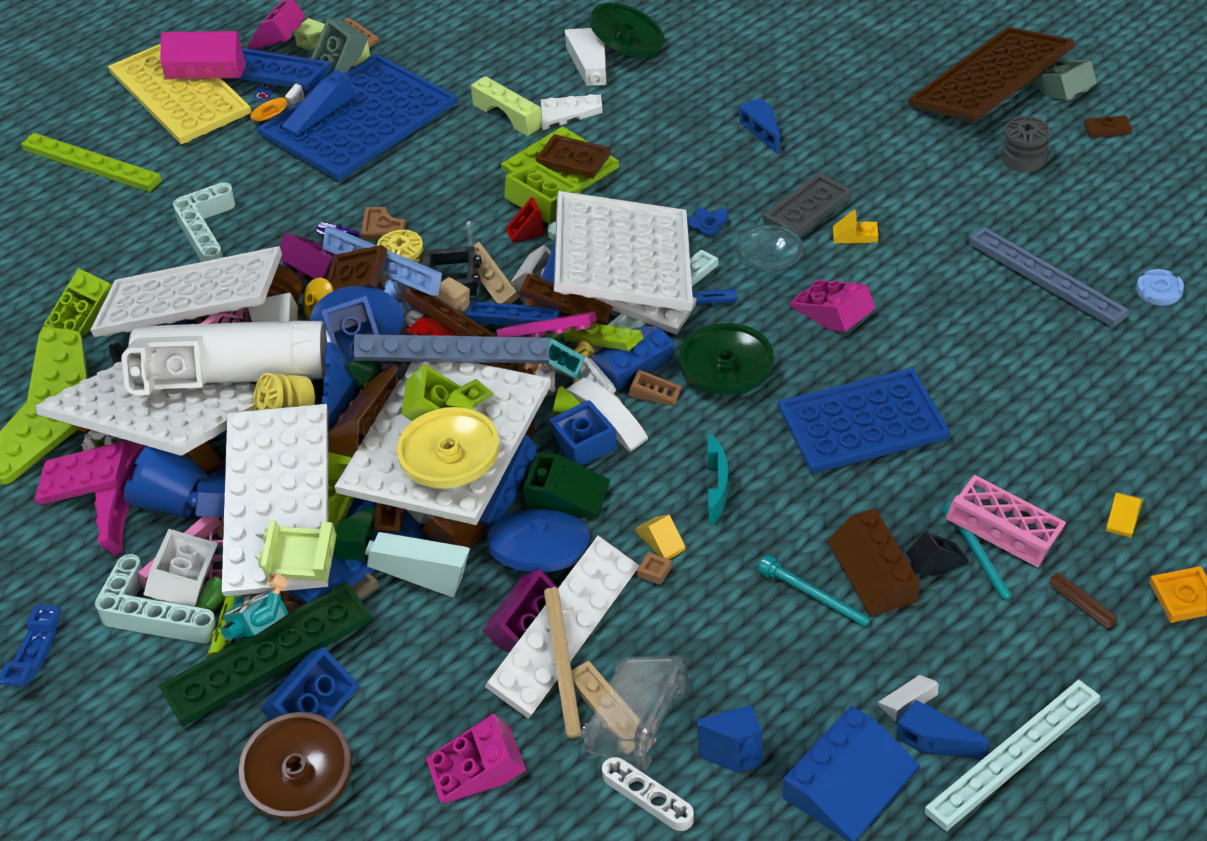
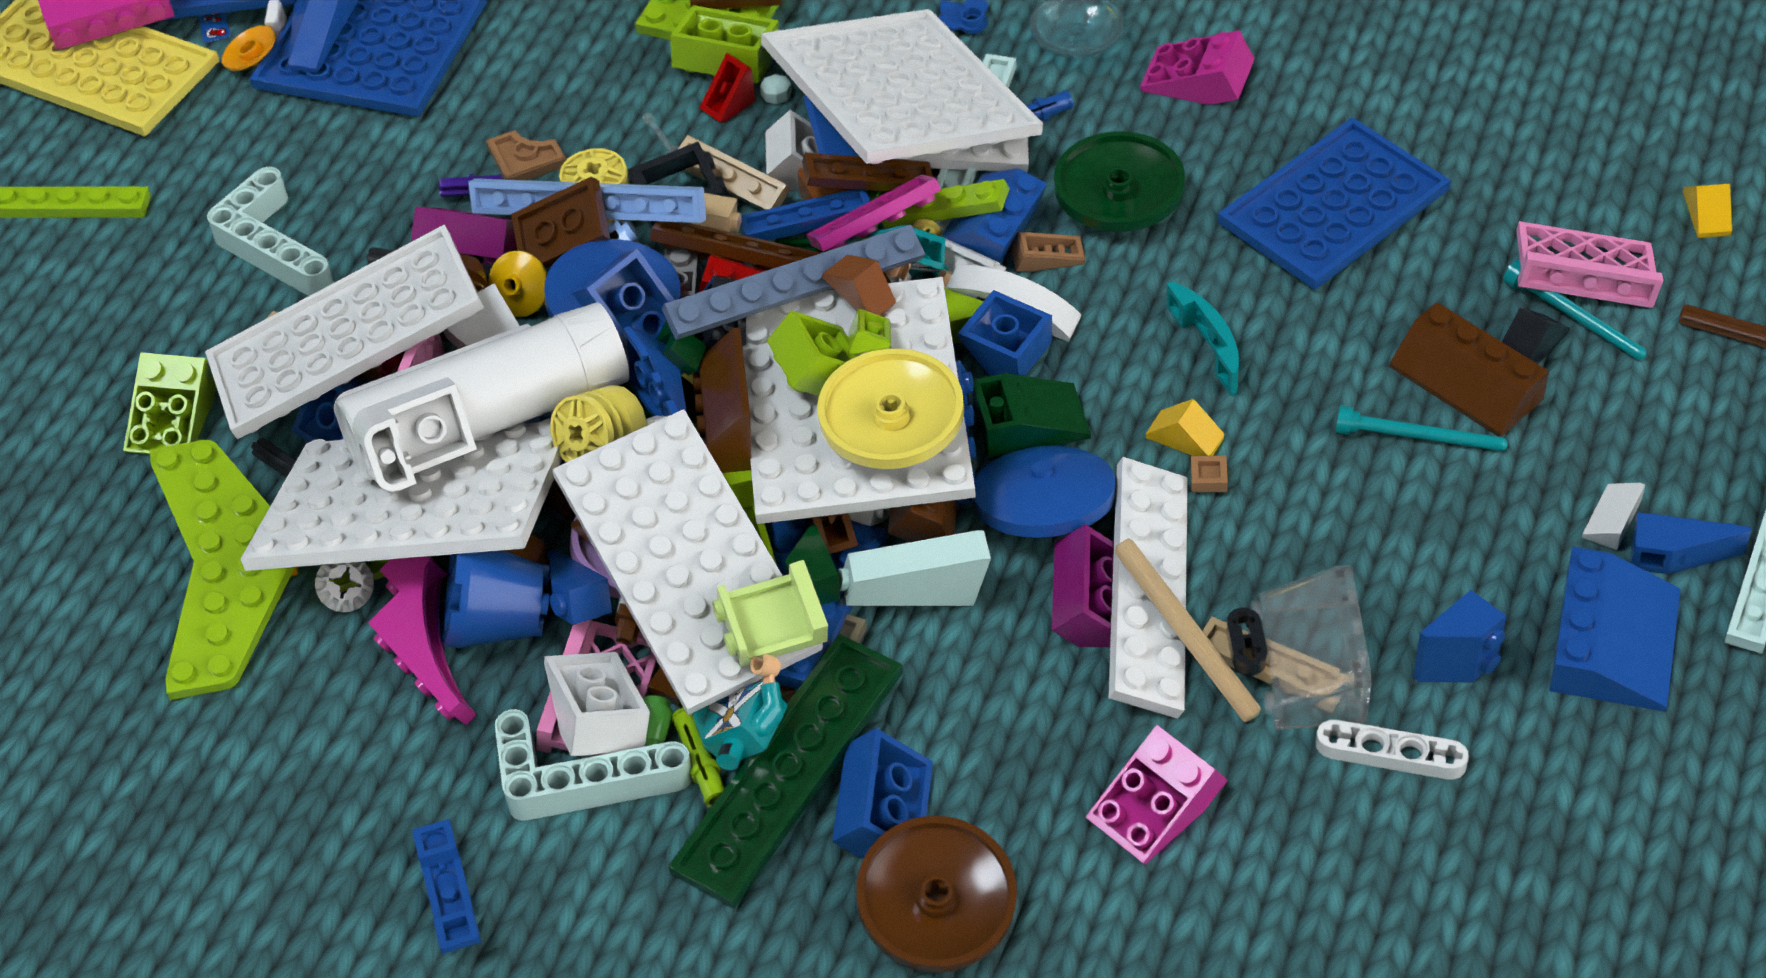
camera: 25 degrees left, 5 degrees up
(82, 473) = (353, 629): dark pink plate -> none
(487, 365) = (861, 284): none -> dark orange slope
(590, 682) = (1254, 640): none -> black beam

